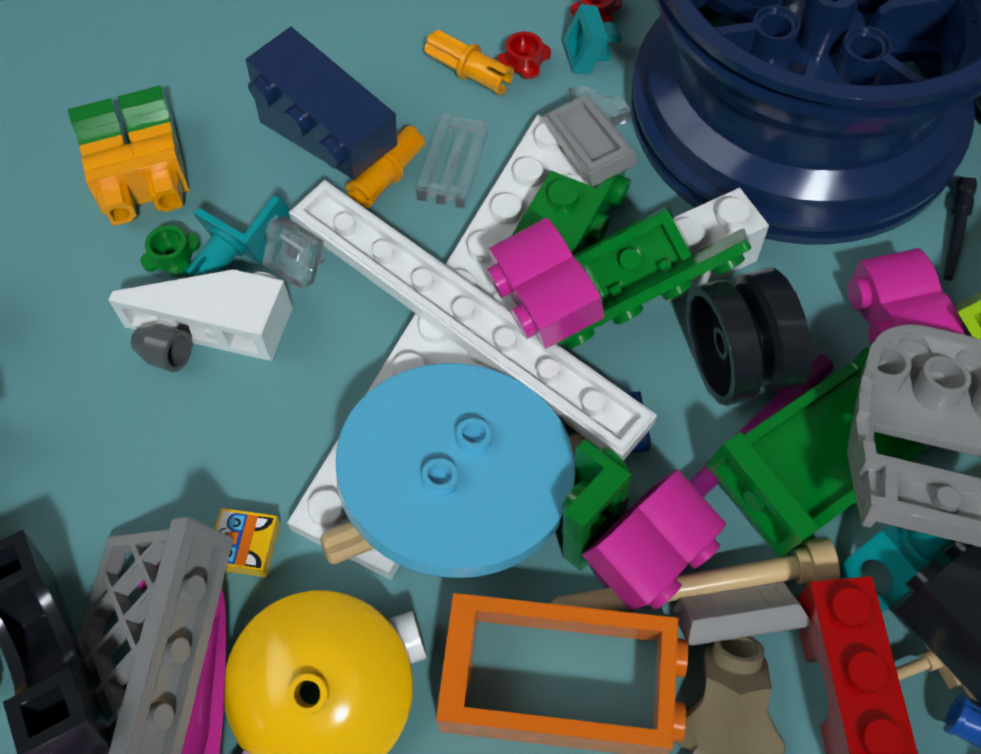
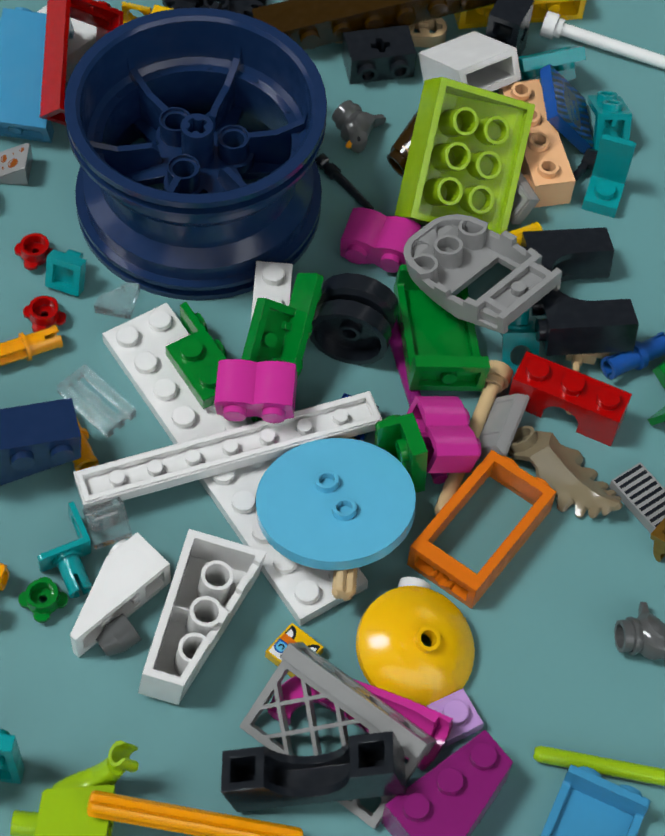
camera: 65 degrees left, 5 degrees down
(214, 400) = (200, 604): none -> white wedge
(590, 140) = (158, 313): light grey tile -> none

